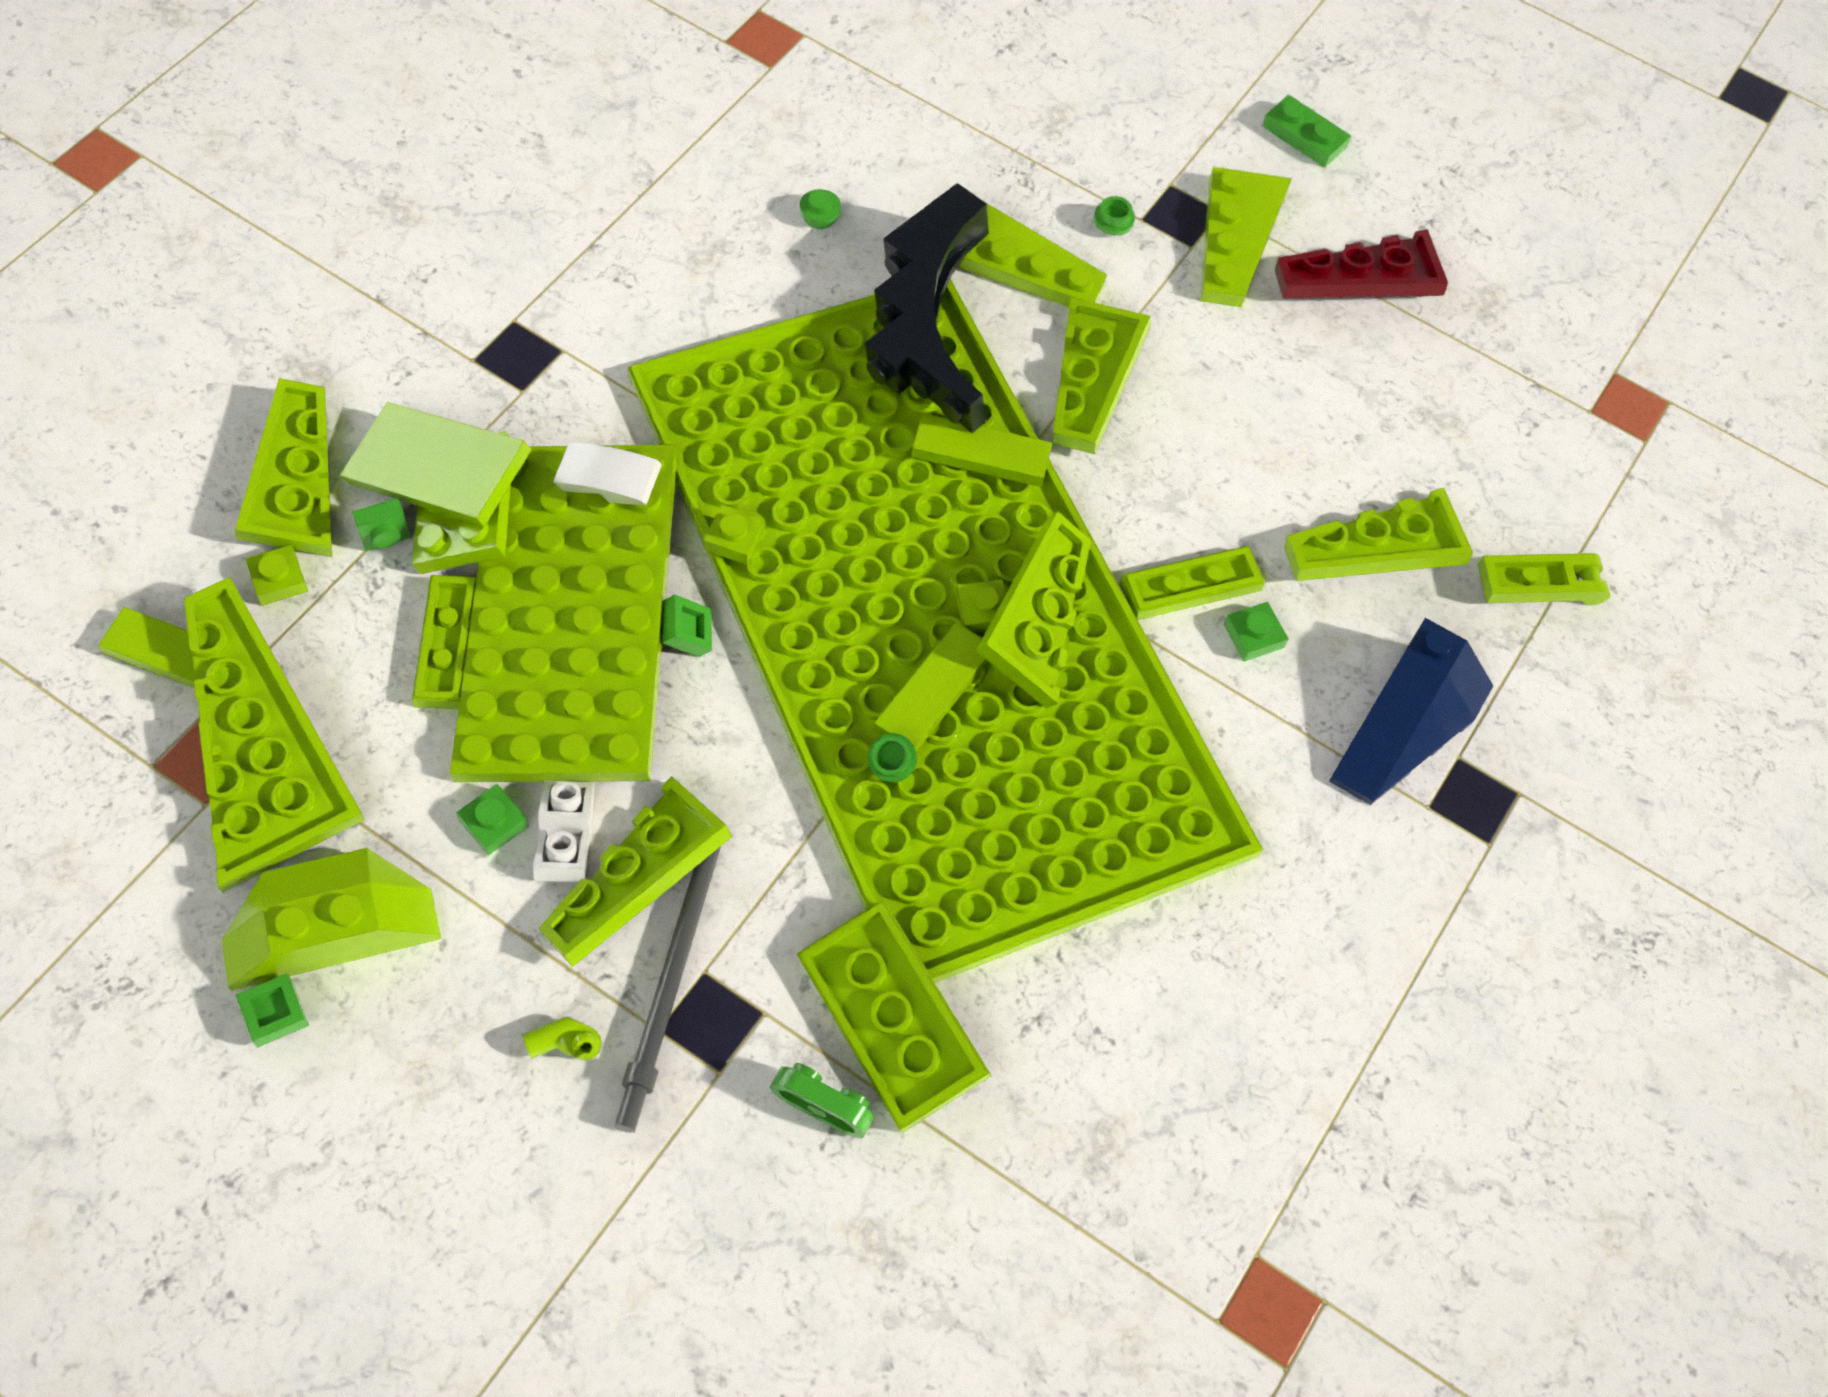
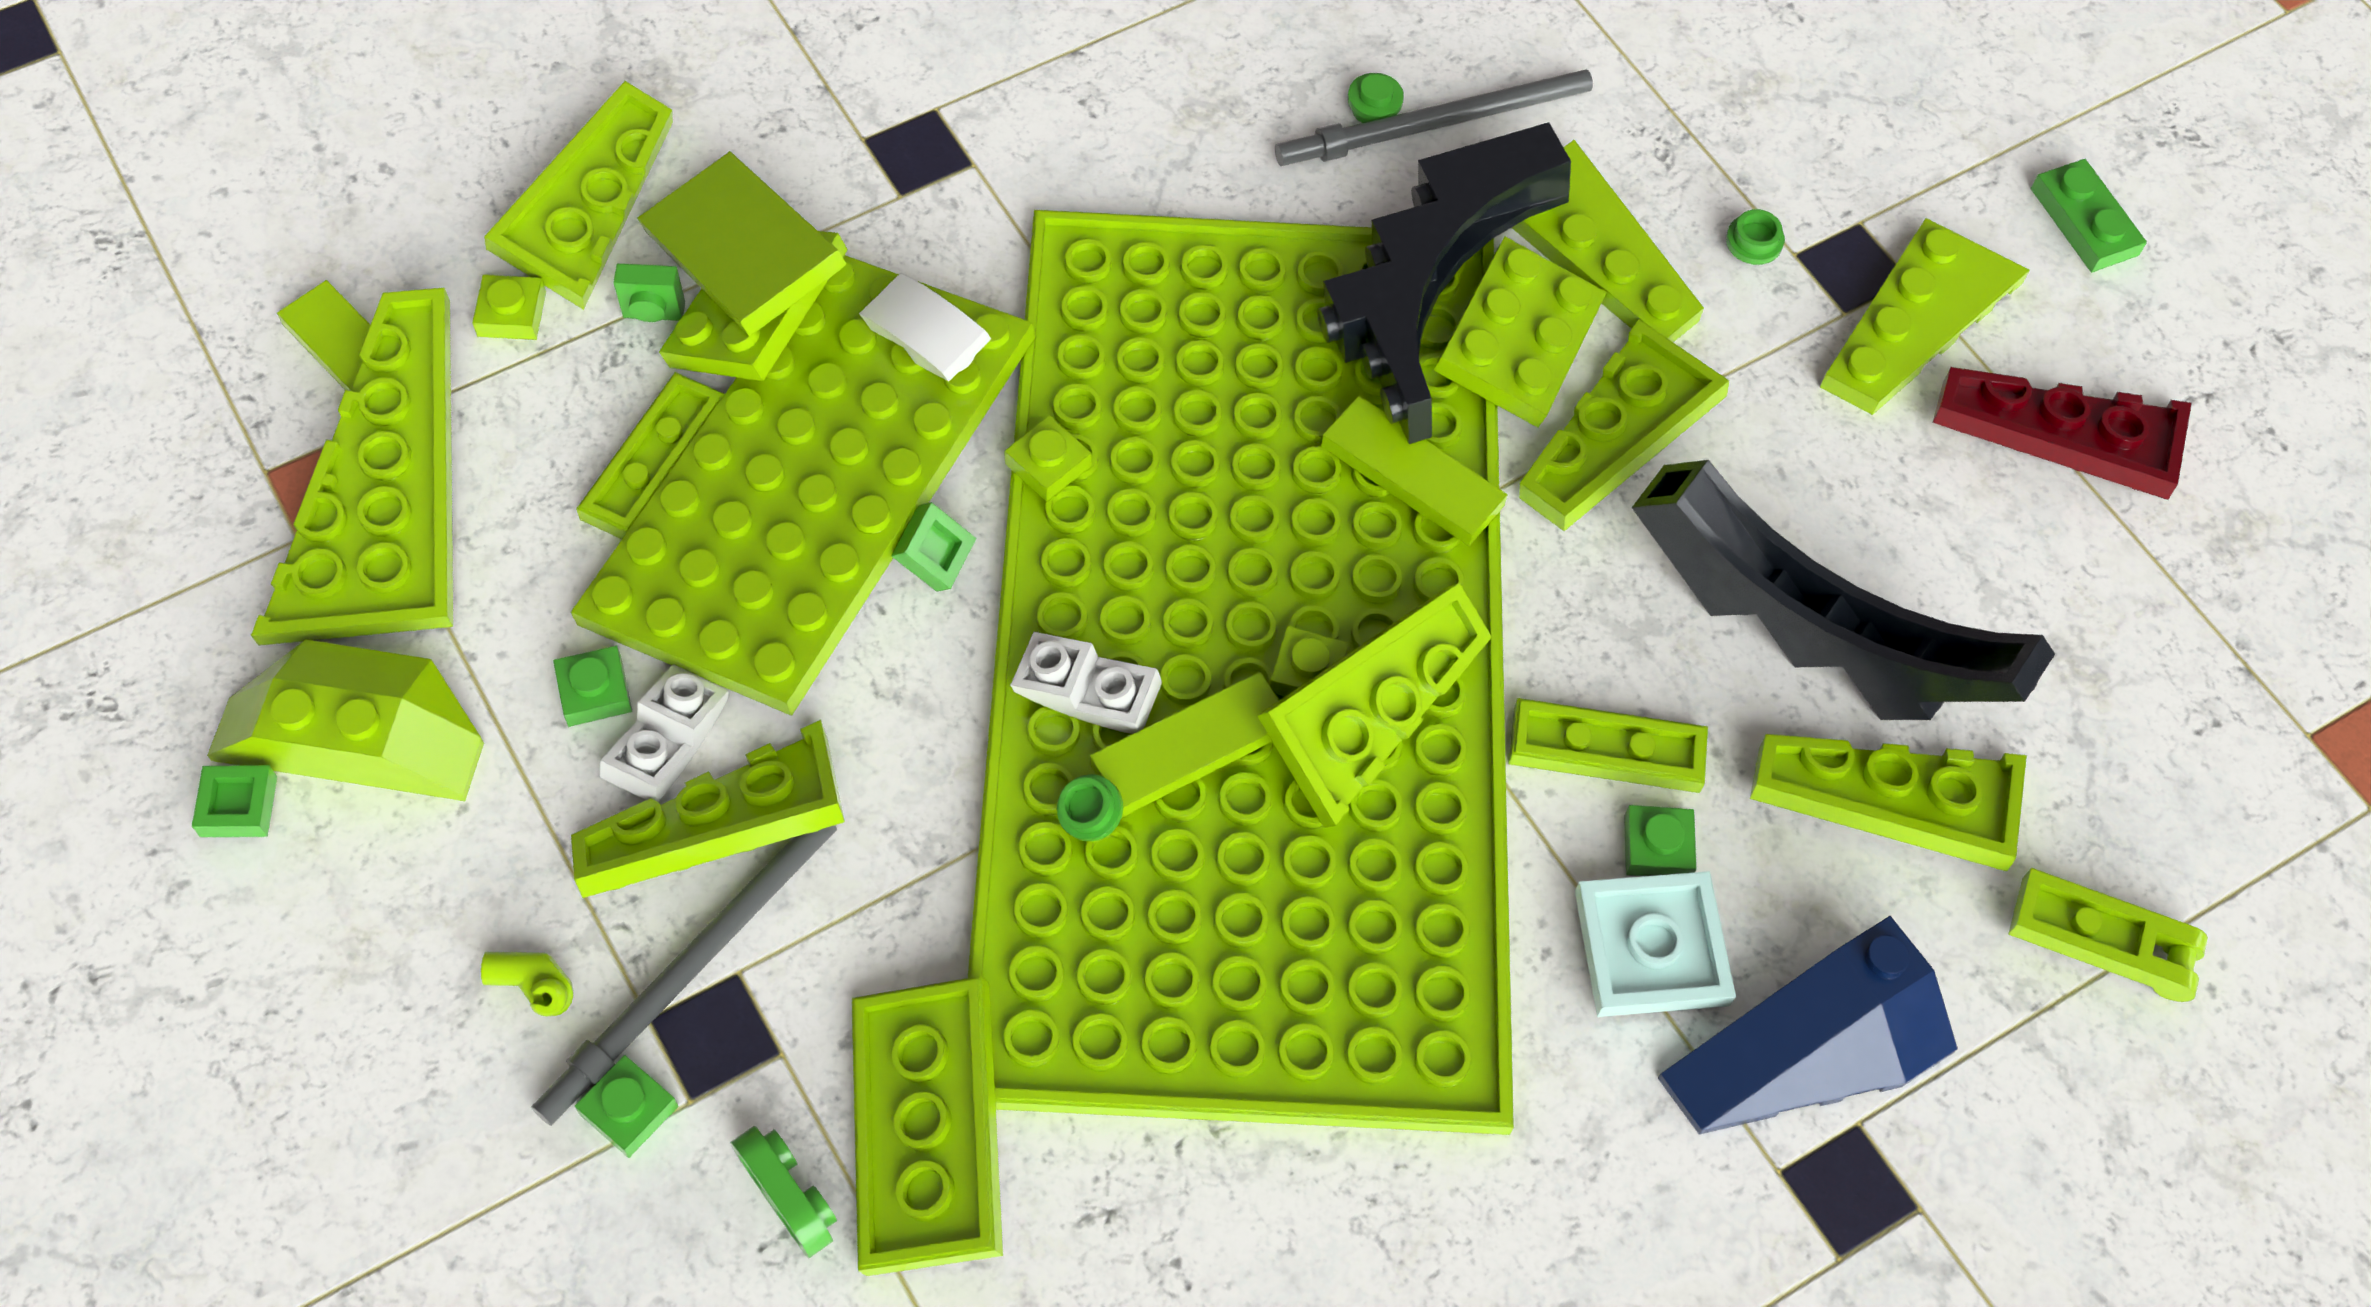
camera: 30 degrees right, 0 degrees up
(679, 1095) = (626, 1106): none -> bright green plate
(810, 245) = (1335, 141): none -> dark grey bar
(837, 678) = (1080, 684): none -> white slope
(1001, 332) = (1520, 332): none -> lime plate
(1286, 448) = (1892, 654): none -> black arch
(1287, 696) = (1654, 944): none -> light aqua plate

